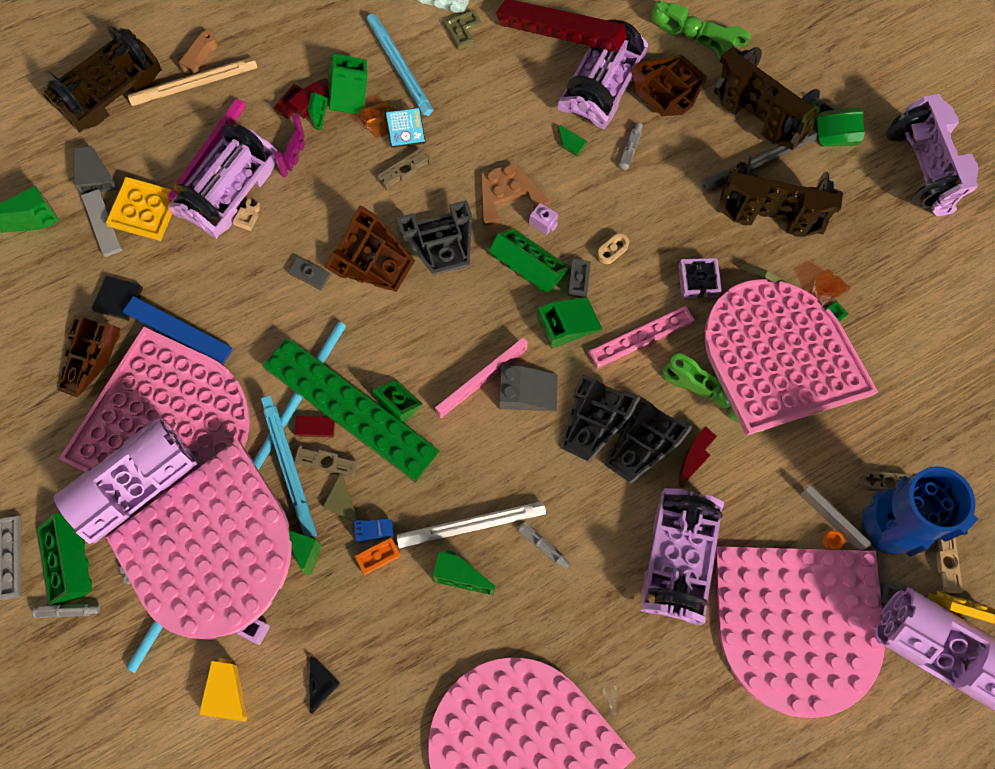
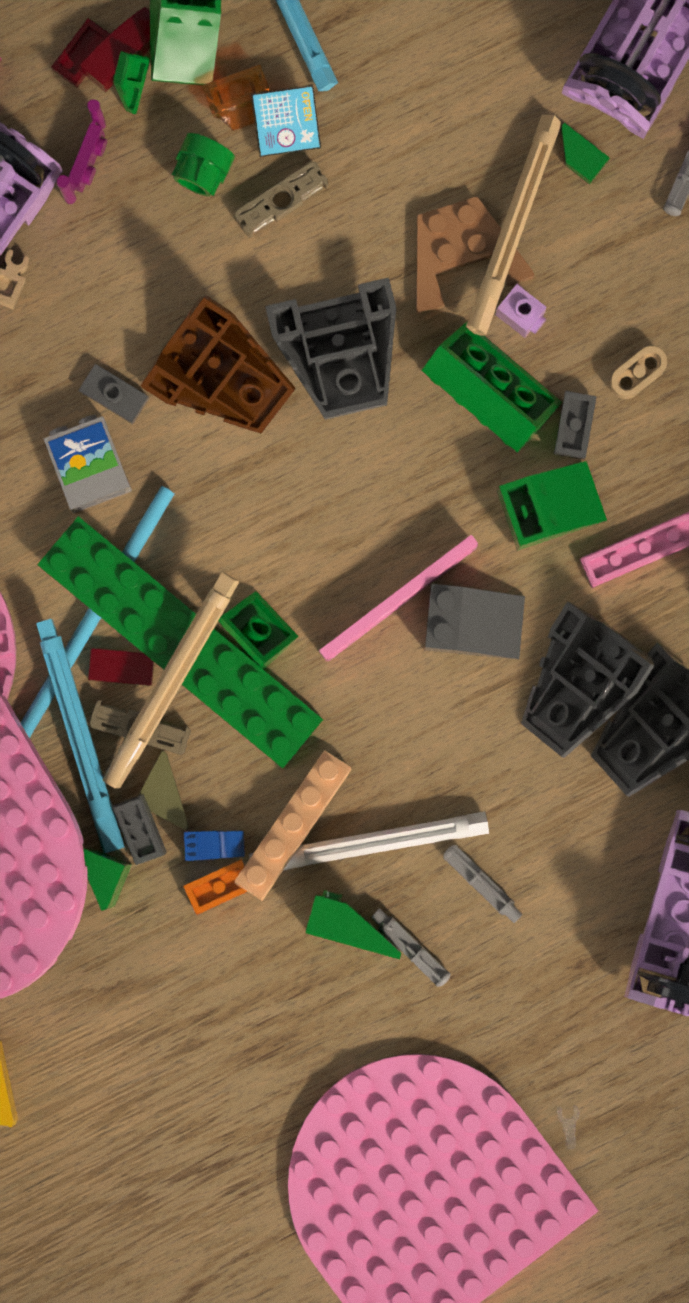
camera: 10 degrees right, 15 degrees up
(255, 632) = (29, 998): lavender brick -> none
(293, 310) = (87, 463): none -> panel
(320, 685) = (128, 1076): black tile -> none
(326, 522) = (139, 829): none -> dark grey plate
(343, 429) = (171, 680): none -> tan piece
(358, 149) = (202, 164): none -> green piece
(422, 515) = (293, 825): none -> light nougat plate
(503, 590) = (411, 948): none -> light grey piece
(535, 176) = (513, 225): none -> tan piece

